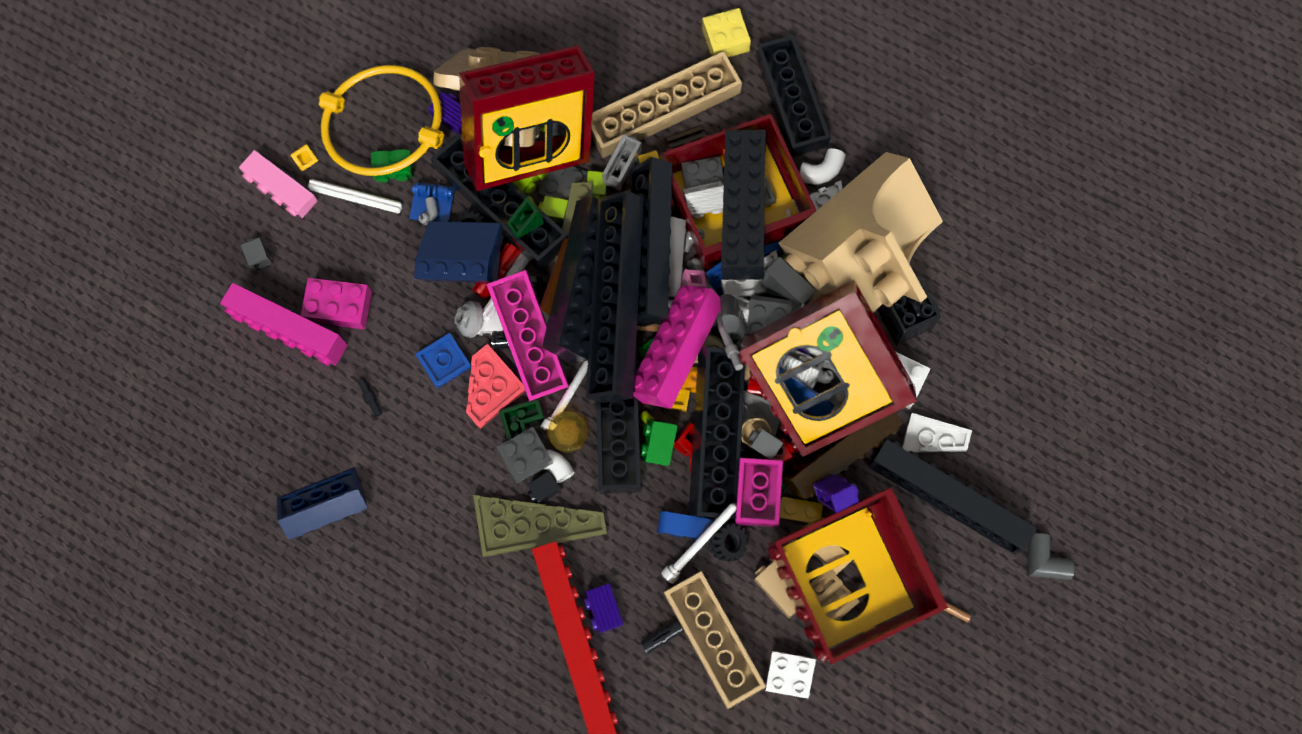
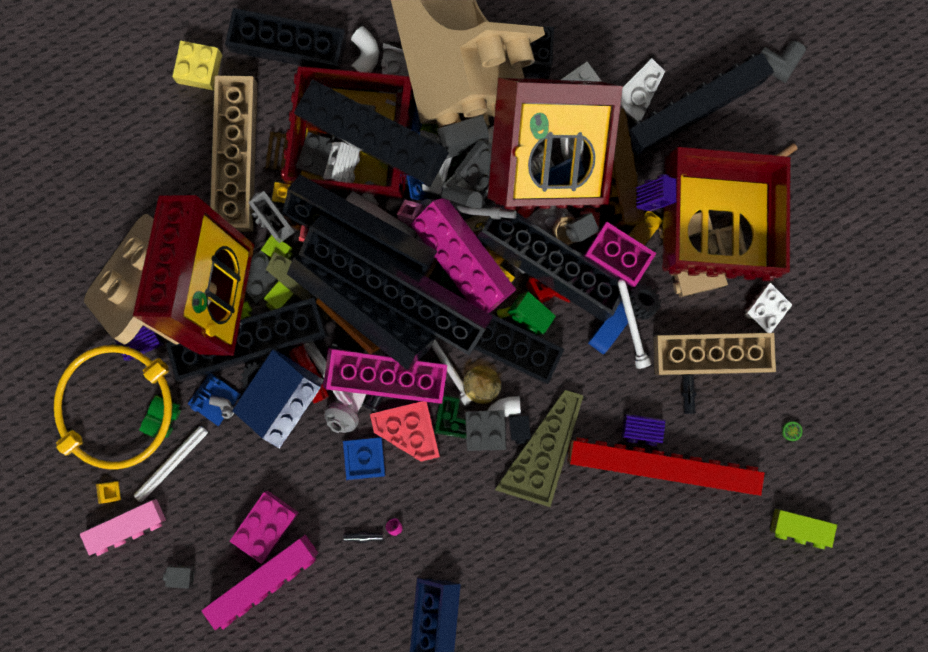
camera: 70 degrees left, 10 degrees up
(392, 424) = (389, 527): none -> dark pink hinge
(525, 218) = (281, 326): dark green slope -> none

